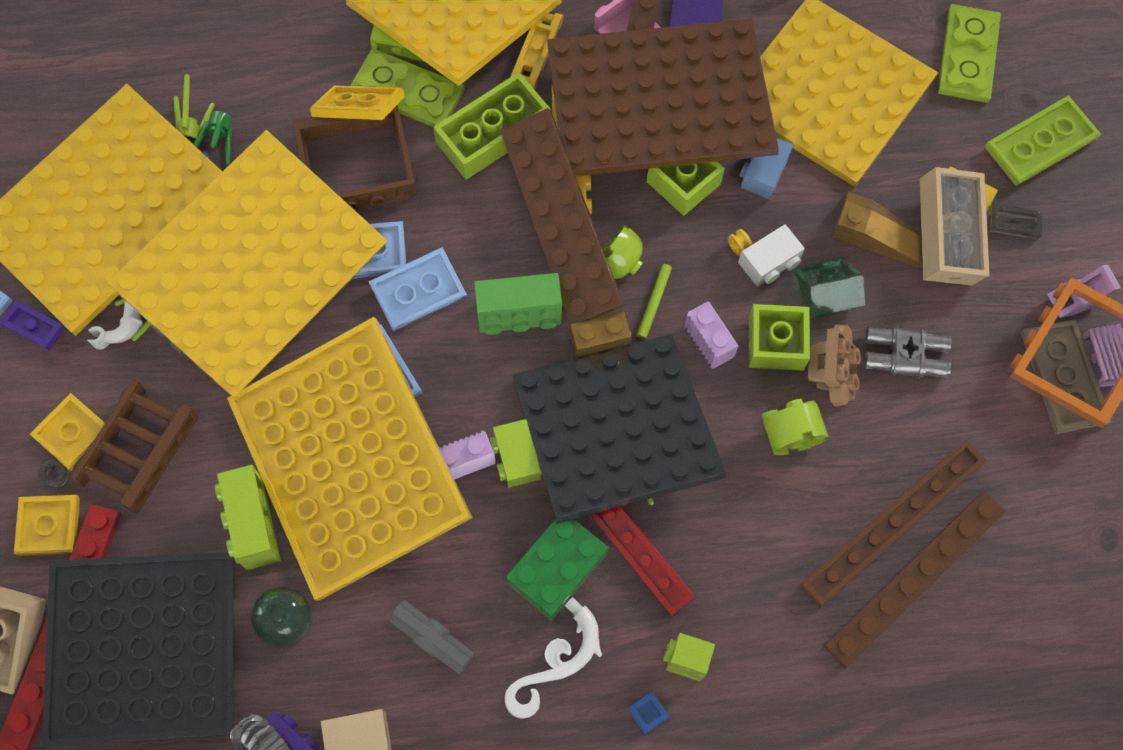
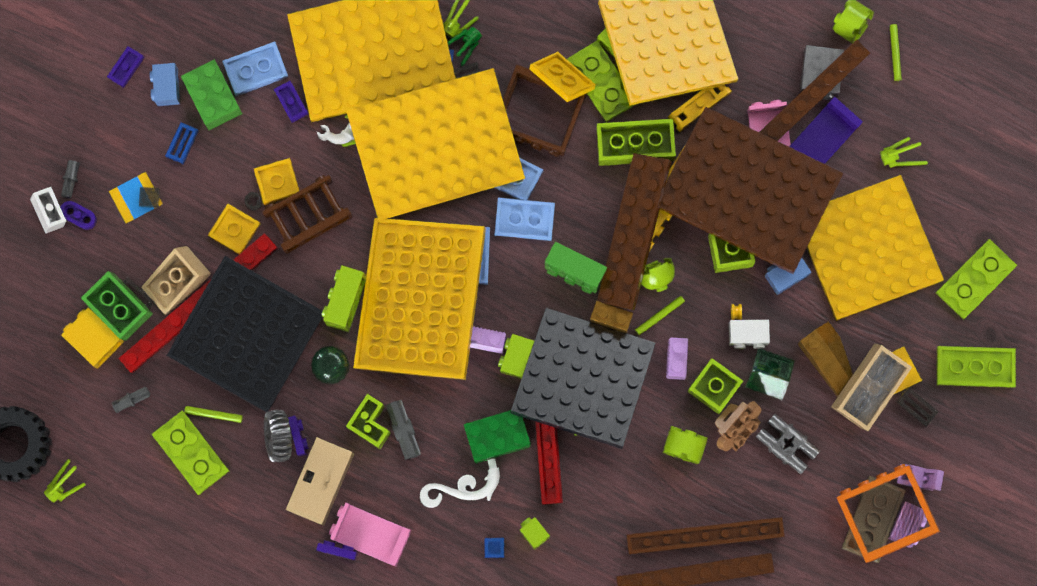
camera: 40 degrees right, 10 degrees up
(374, 661) = (364, 422): none -> lime brick

